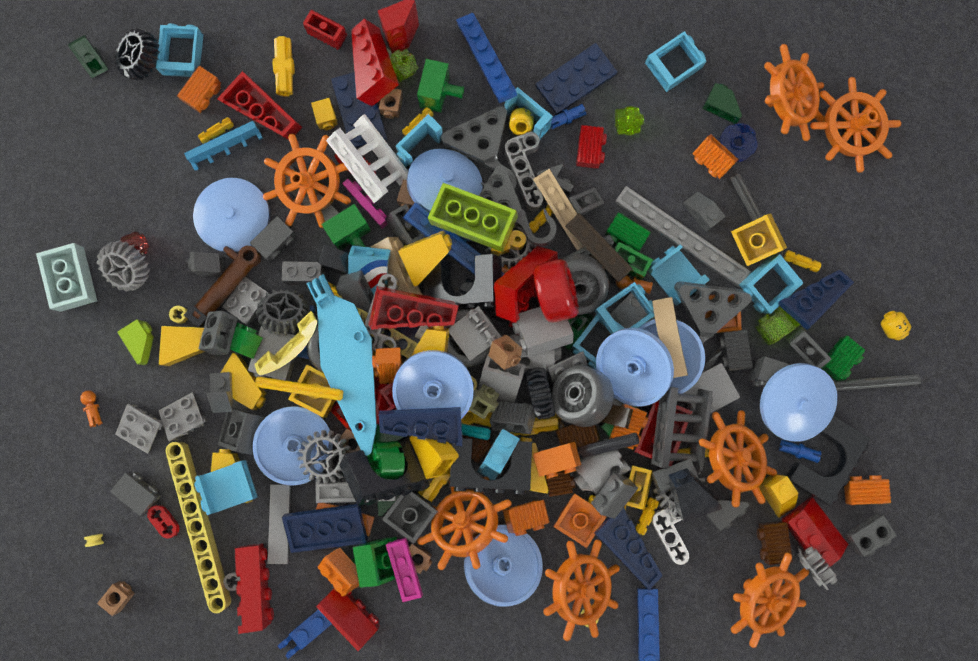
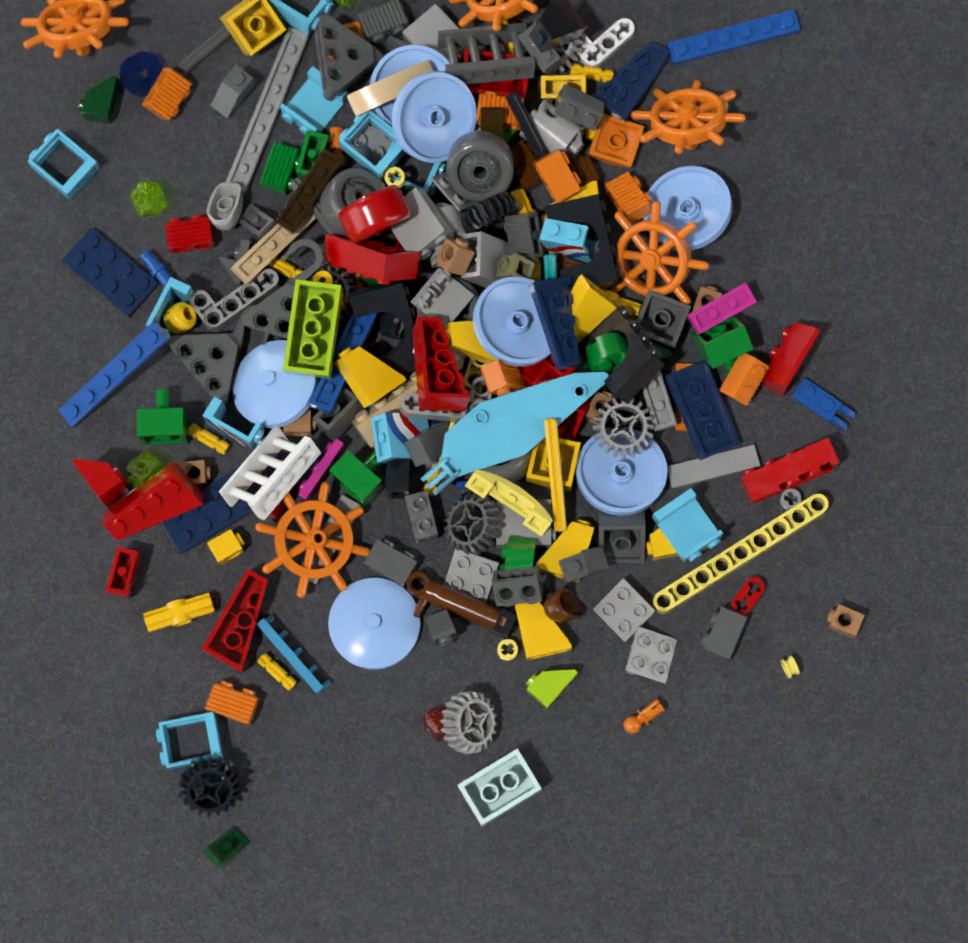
camera: 100 degrees left, 5 degrees down
(193, 366) = (562, 606): none -> reddish brown piece
(586, 322) = (392, 171): none -> light yellow bush
(606, 180) = (225, 205): none -> light grey piece

